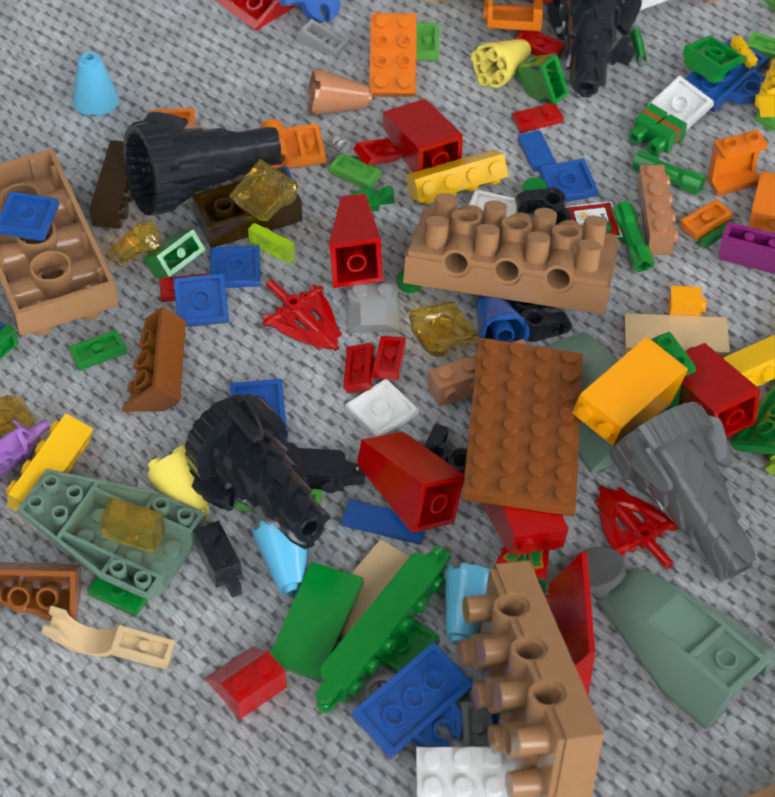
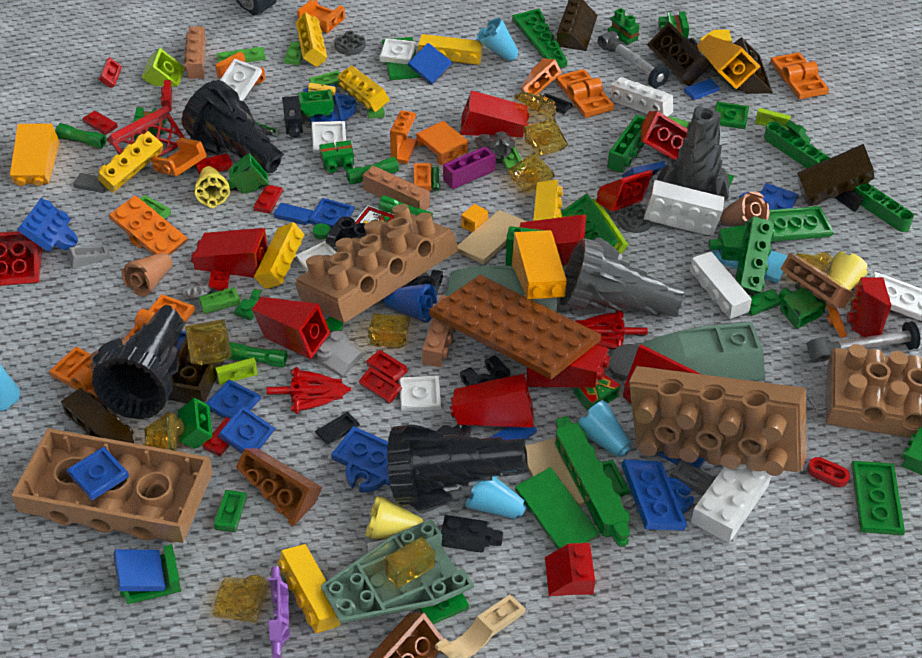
camera: 55 degrees left, 5 degrees down
(272, 368) = (337, 428): none -> black tile
(302, 233) = (272, 357): none -> green axle
(668, 56) = (293, 124): none -> black torso

